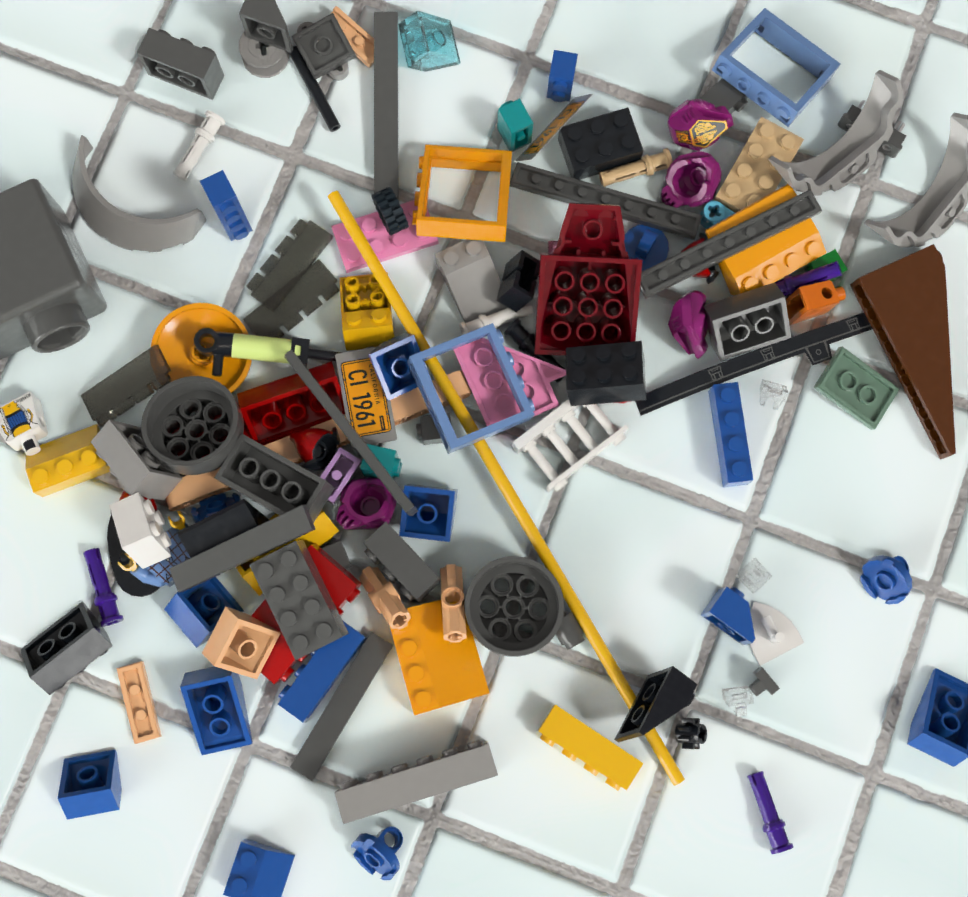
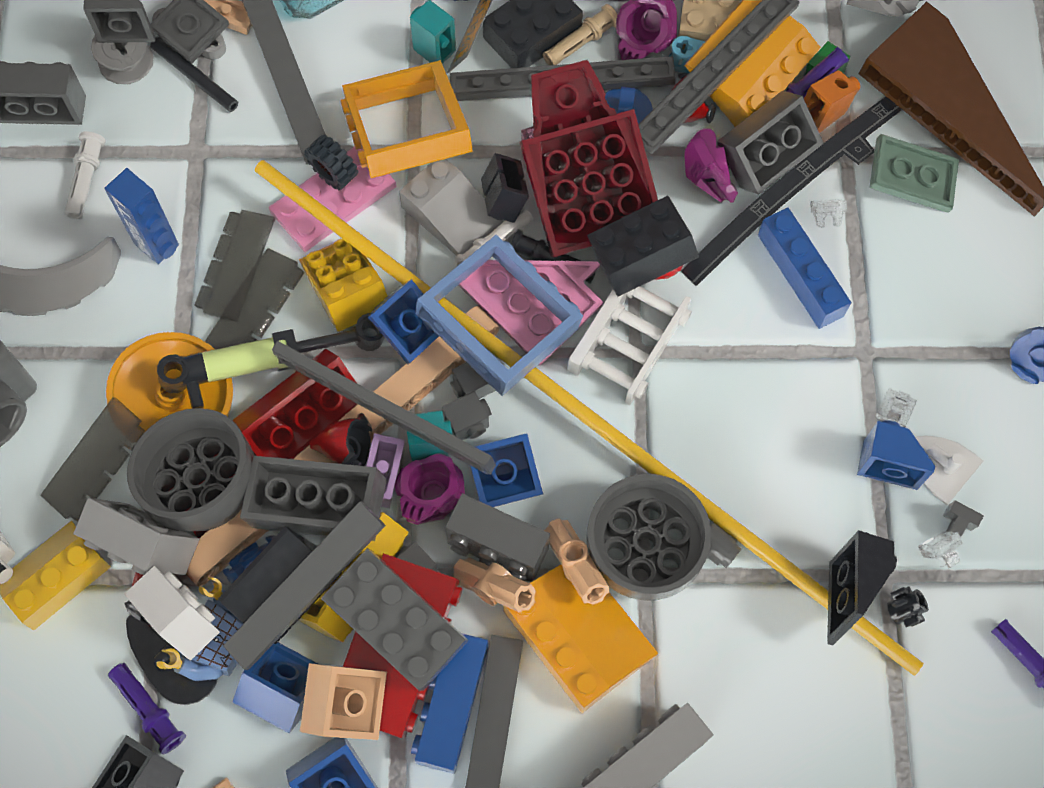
camera: 20 degrees left, 10 degrees down
(364, 398) = (380, 368): sticker -> none
(418, 456) = (467, 416): none -> dark grey brick
(590, 747) = (801, 668): yellow brick -> none

